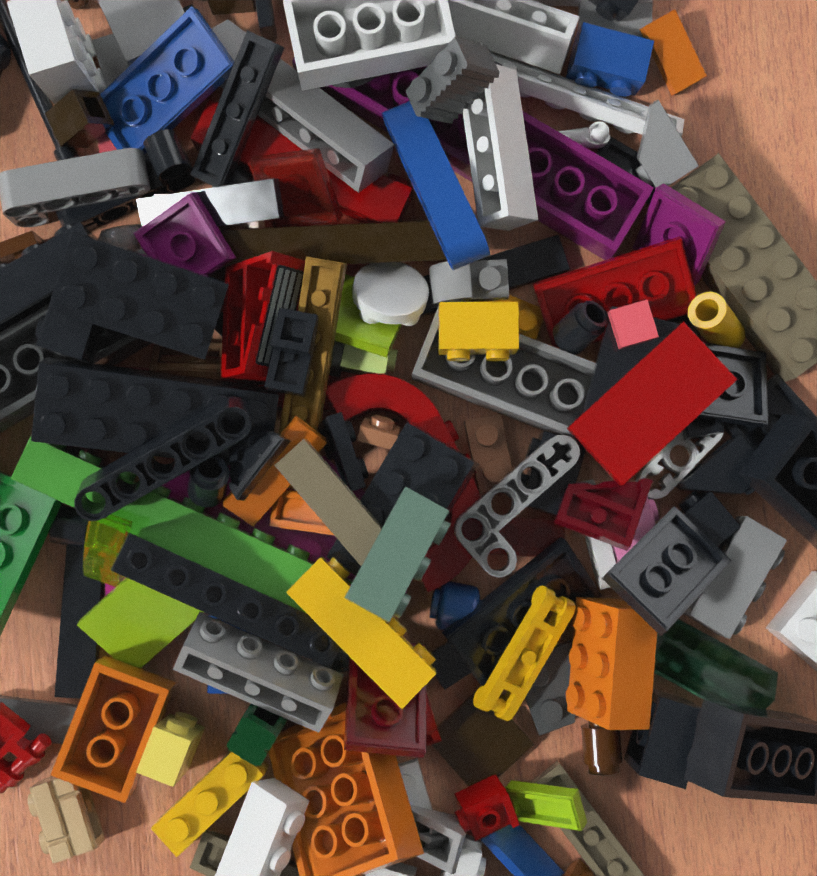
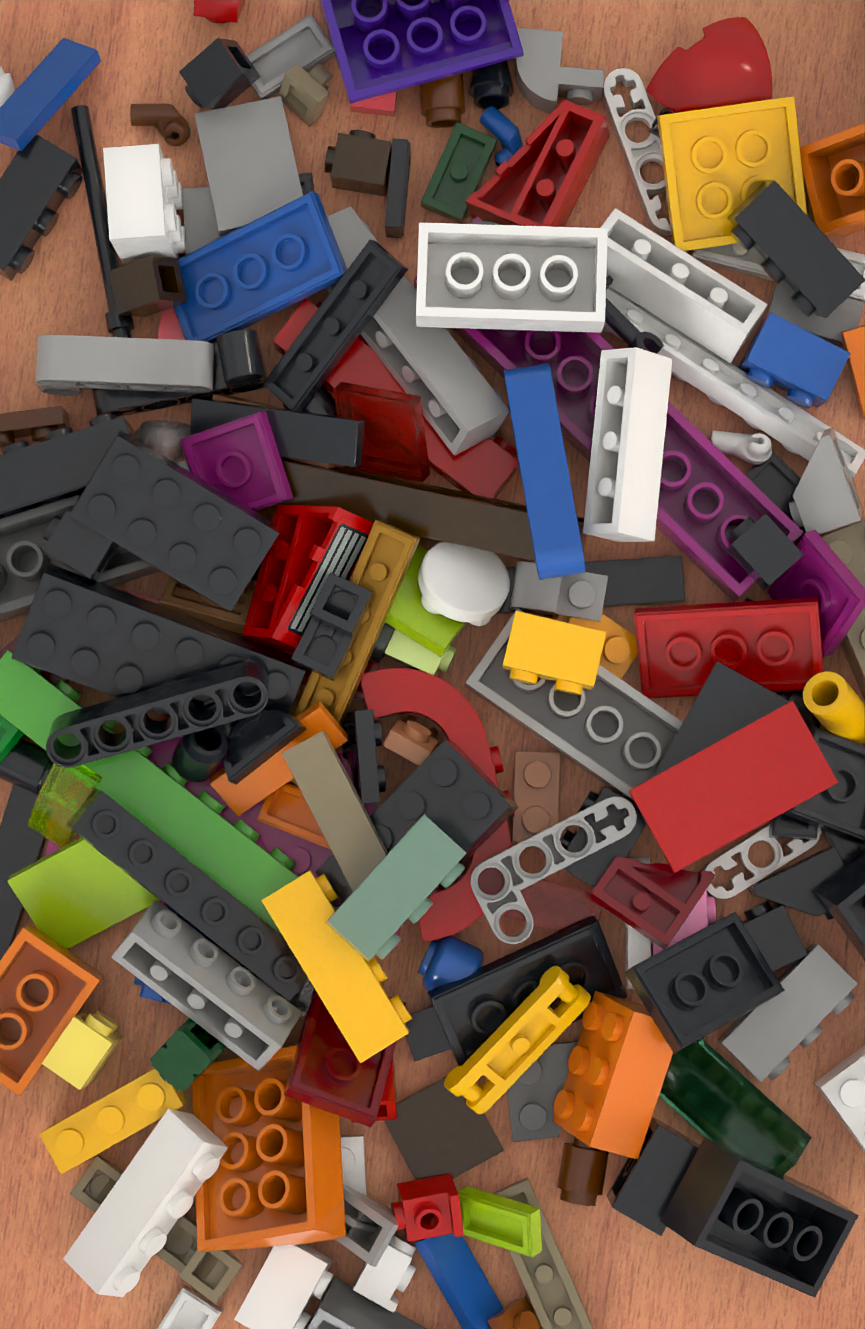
camera: 20 degrees right, 0 degrees up
(452, 80) = (591, 361): dark grey brick -> none
(580, 327) = (675, 676): black brick -> none
(627, 207) = (763, 550): none -> black brick
(633, 324) = (734, 689): coral tile -> none

